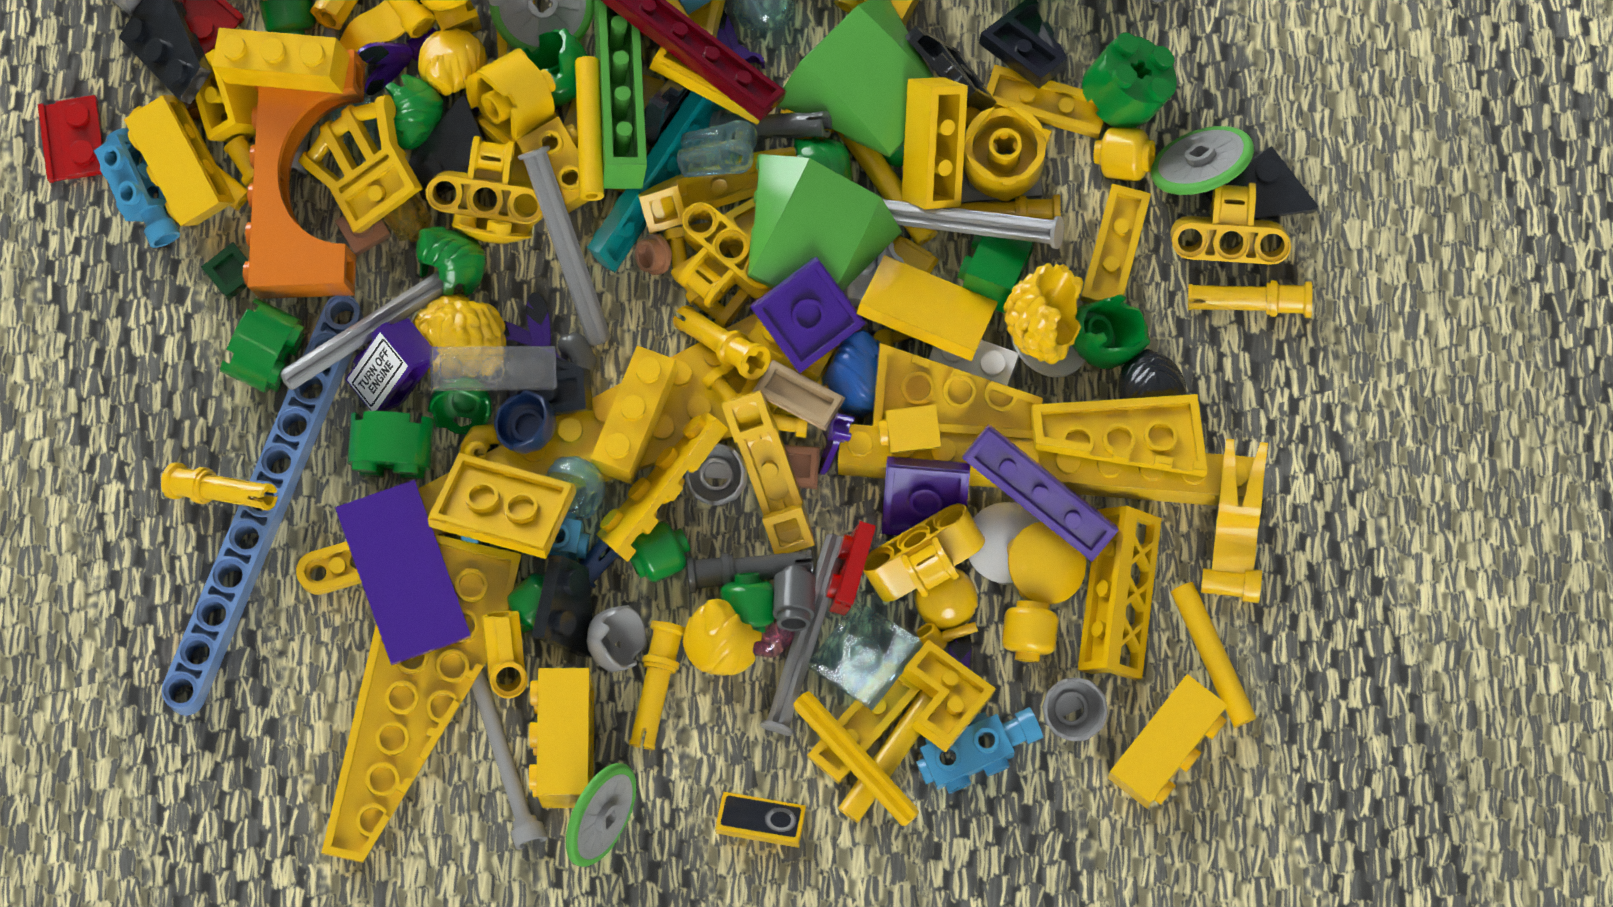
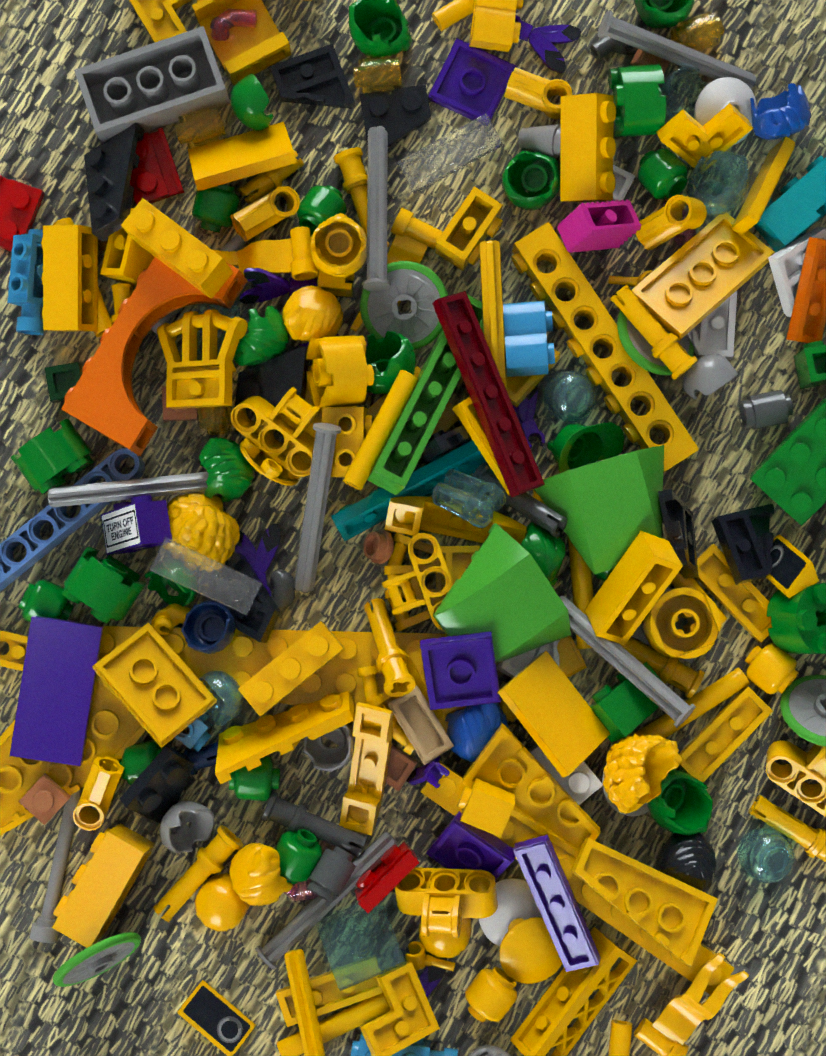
camera: 25 degrees right, 10 degrees up
(330, 493) = (44, 600): none -> green head
(451, 692) = (44, 799): none -> nougat plate
(698, 701) = (219, 904): none -> yellow hair
(799, 36) = (583, 445): none -> green piece
(1080, 219) = (703, 700): none -> yellow piece
(1082, 40) = (790, 568): none -> slope
(1230, 341) = (765, 855): none -> clear light blue hair

